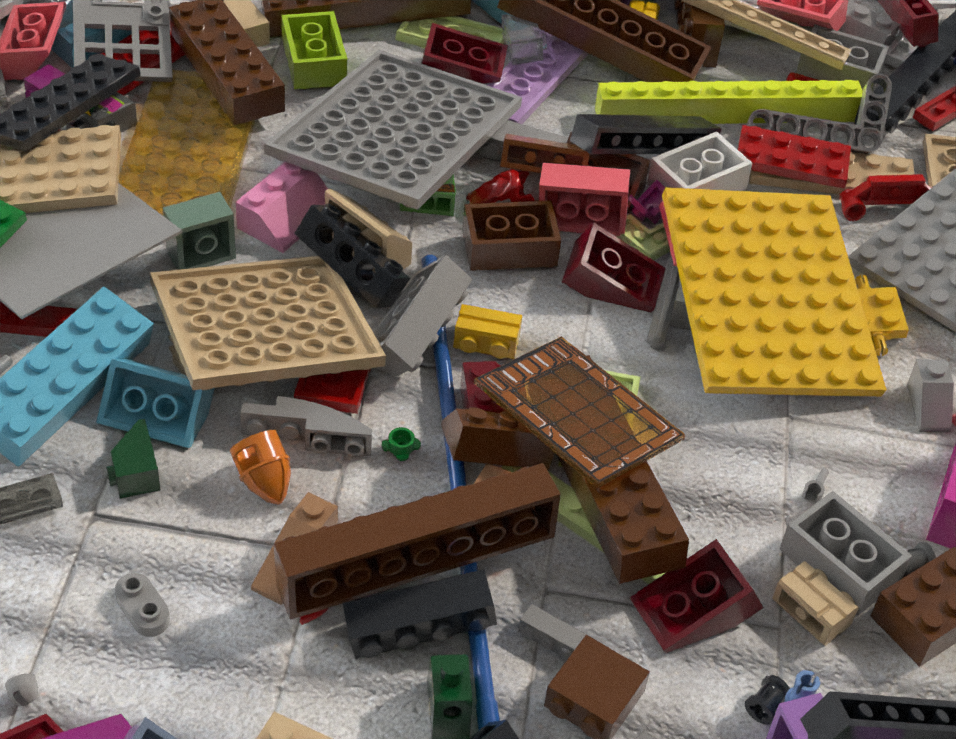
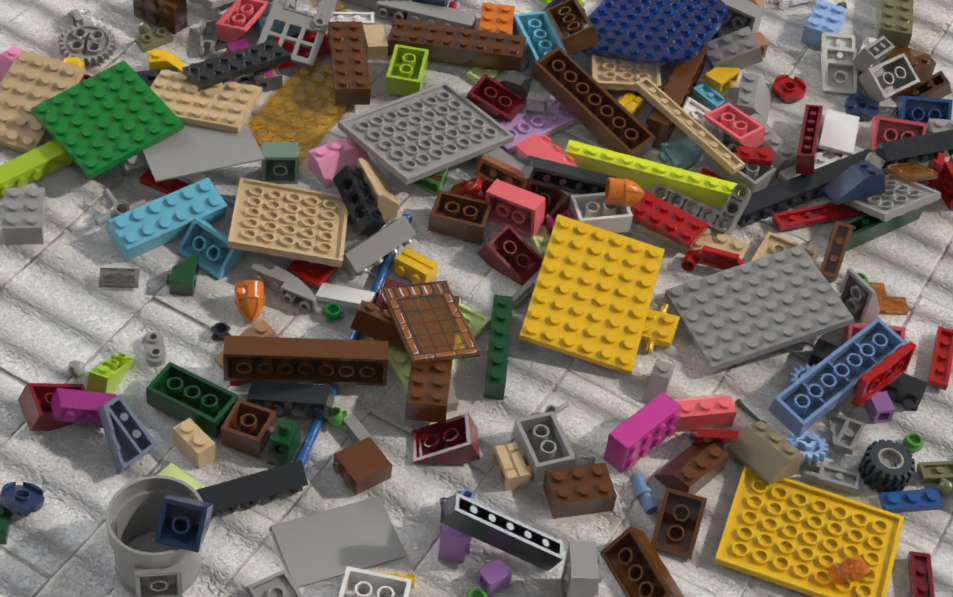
camera: 20 degrees right, 0 degrees up
(86, 680) = (109, 373): none -> lime slope
(236, 529) = (219, 331): none -> black plate
(256, 673) = (192, 397): none -> dark green brick
(378, 691) = (248, 427): none -> reddish brown brick
(408, 410) = (343, 295): none -> white tile
(477, 23) = (517, 82): none -> dark grey slope
(506, 618) = (336, 417): none -> bright green plate
(562, 107) = (541, 147): none -> coral slope
(673, 397) = (498, 347): none -> dark green brick
(731, 130) = (622, 192): none -> orange helmet
(746, 60) = (680, 153): none -> clear light blue slope
(855, 36) = (754, 155): none -> red plate

